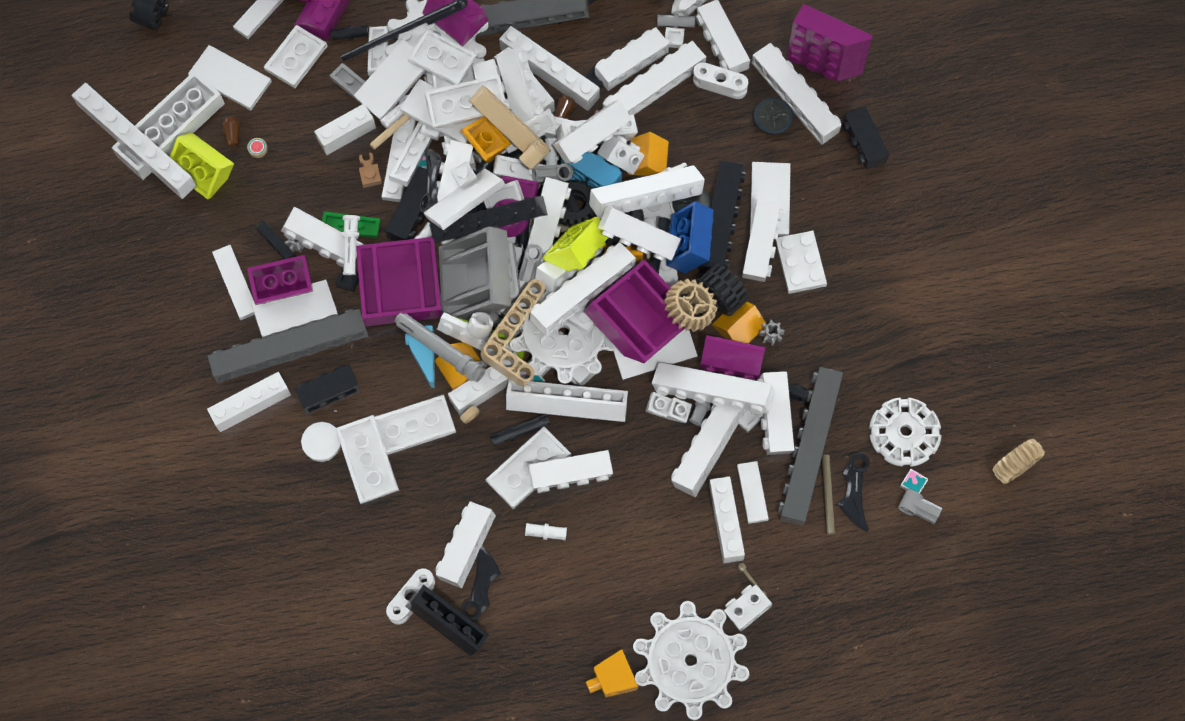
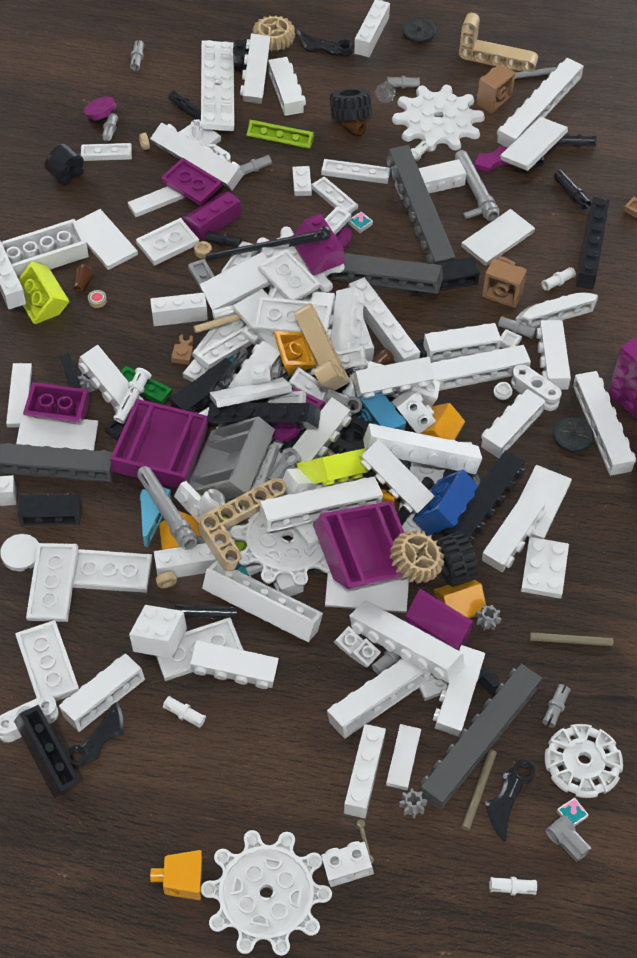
camera: 20 degrees right, 15 degrees down
(334, 51) = (202, 248): none -> tan tile
(385, 155) = (209, 335): none -> white bar
(400, 536) = (47, 661): none -> white tile
(489, 468) = (158, 631): none -> white brick
(690, 95) = (503, 390): none -> white plate
(714, 127) = (512, 423): none -> white brick
(781, 526) = (407, 804): none -> light grey gear
(851, 322) = (587, 640): none -> dark tan bar
(863, 391) = (556, 705): none -> light grey pin
(890, 567) = (513, 885): none -> white pin

